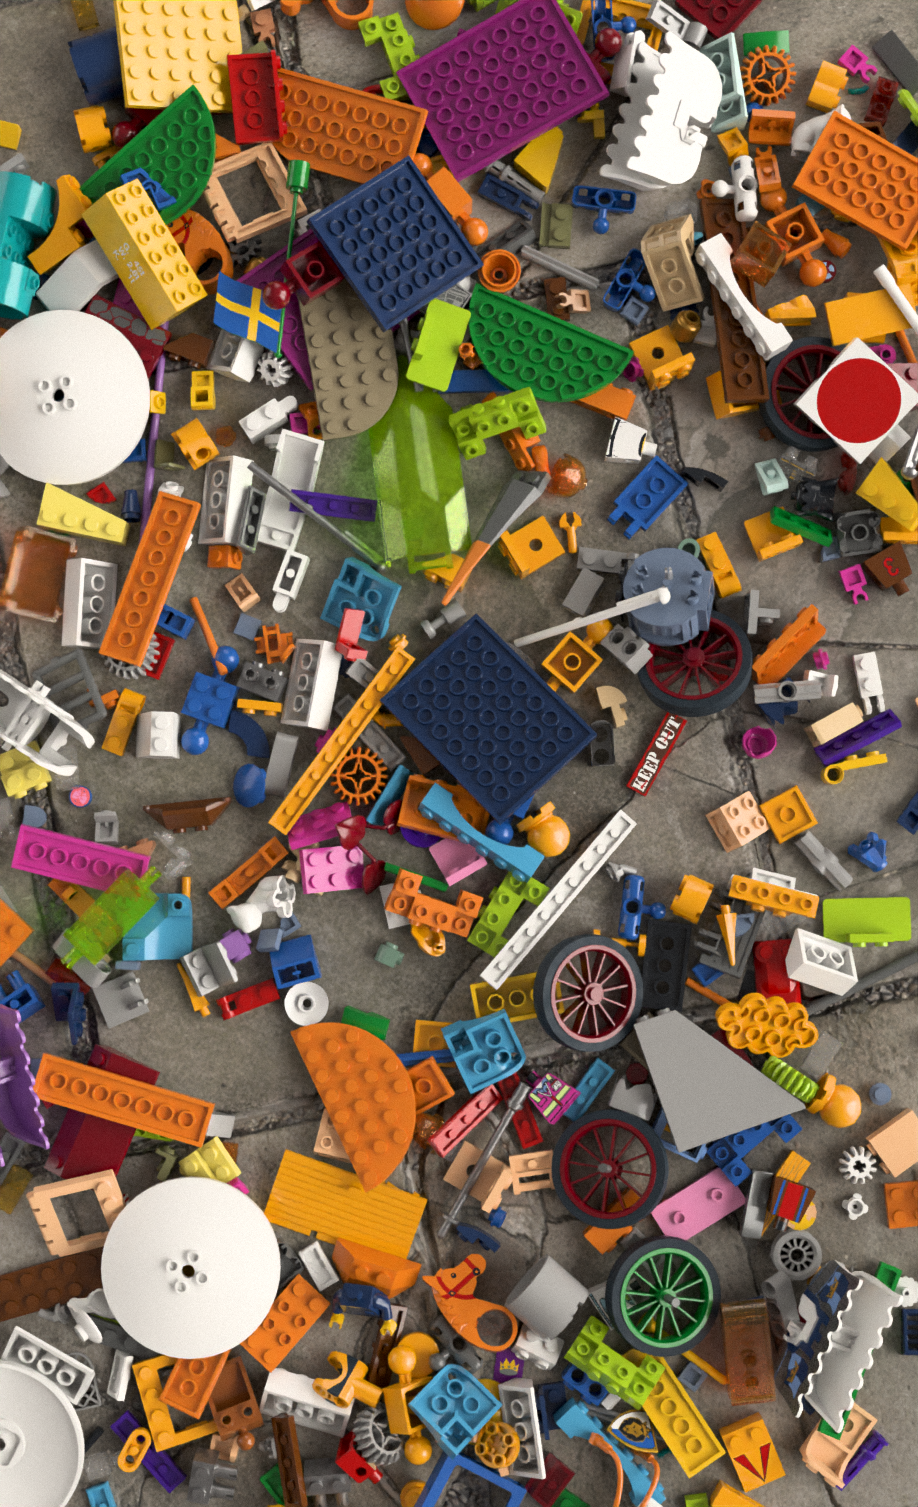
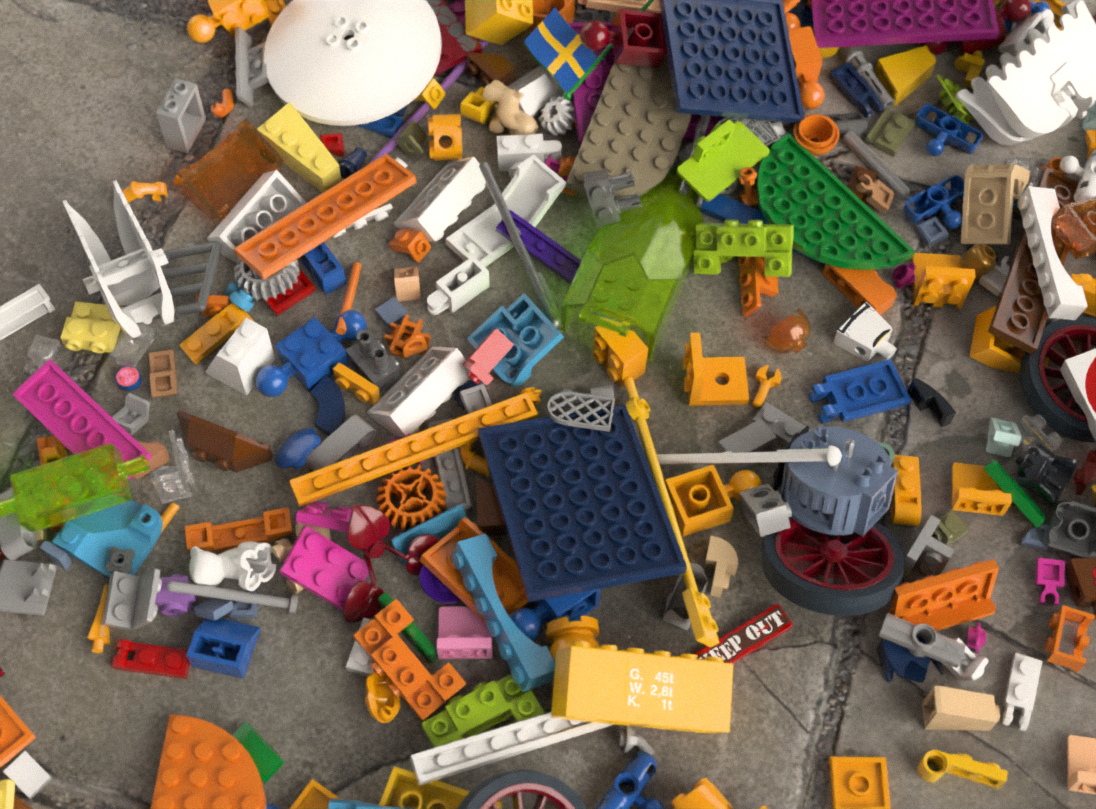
camera: 25 degrees right, 25 degrees down
(34, 816) = (74, 370): sand blue tile -> none
(105, 778) = (163, 373): none -> medium nougat slope
(123, 686) = (239, 297): none -> dark azure plate
(186, 946) = (116, 554): none -> dark grey plate
(225, 430) = (477, 145): clear orange plate -> none
(234, 390) = (507, 111): none -> tan animal
(251, 521) = (453, 220): dark grey slope -> none
(306, 1015) = (201, 685): white dish -> none
(320, 905) = (234, 595): none -> light grey bar
(361, 437) = (602, 199): none -> flat silver brick
(389, 954) = (328, 694): sand green plate -> none
(446, 631) = (580, 396): none -> light grey window
(510, 504) = (721, 316): dark grey plate -> none
(540, 458) = (766, 314): orange piece -> none
(592, 161) = (950, 101): none -> lime hinge
(611, 841) = (642, 688): none -> yellow brick
(614, 752) = (696, 602): none -> yellow bar
(738, 822) = (796, 760): light nougat bracket -> none
(759, 742) = (863, 686): dark pink hair -> none
(763, 580) = (950, 528): none -> olive bracket
(766, 434) = (1016, 395): reddish brown plate -> none
(857, 737) = (982, 741): dark purple plate -> none
(885, 623) = (1068, 637): none -> orange window

